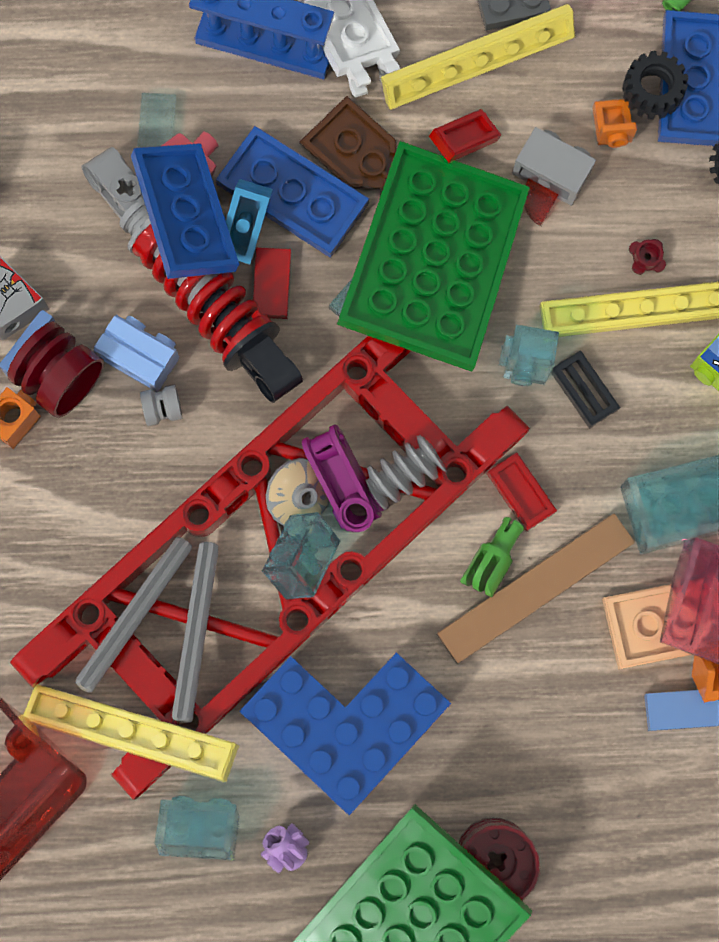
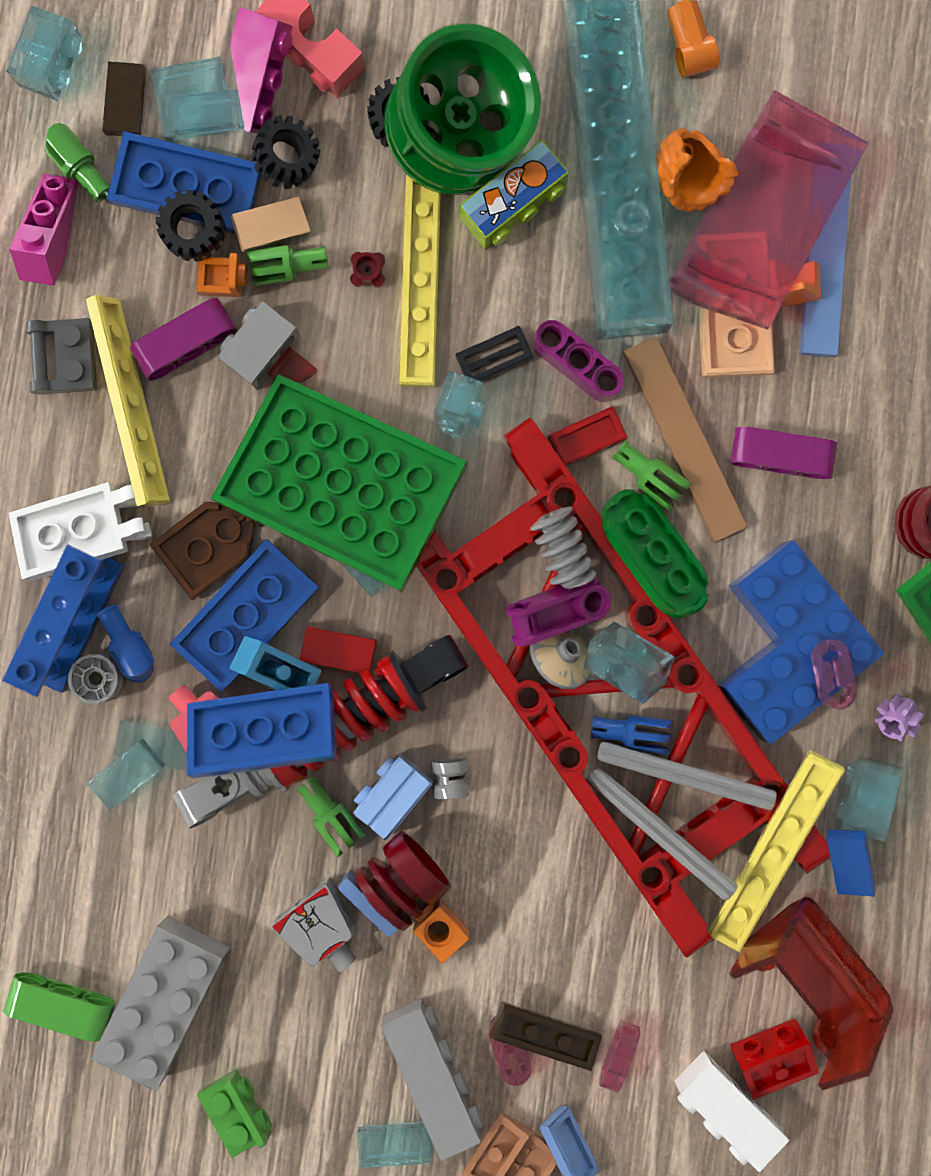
camera: 75 degrees left, 10 degrees up
(113, 293) = (325, 811): none -> bright green arm
(125, 105) = (126, 773): none -> clear light blue tile
(128, 817) = (851, 862): none -> blue tile
(217, 54) = (90, 692): none -> light grey wheel
(231, 573) = (627, 731): none -> blue arm
(246, 89) = (126, 646): none -> blue arm
(316, 750) = (842, 671): none -> clear pink beam
(414, 571) = (655, 553): none -> green tile
(465, 135) = (213, 430): red tile -> none
(539, 689) = (783, 453): none -> magenta beam
(547, 96) = (183, 339): none -> magenta beam
(599, 452) = (570, 345): none -> magenta beam
(637, 178) = (283, 263): none -> bright green arm
(672, 158) = (270, 224): none -> light nougat tile

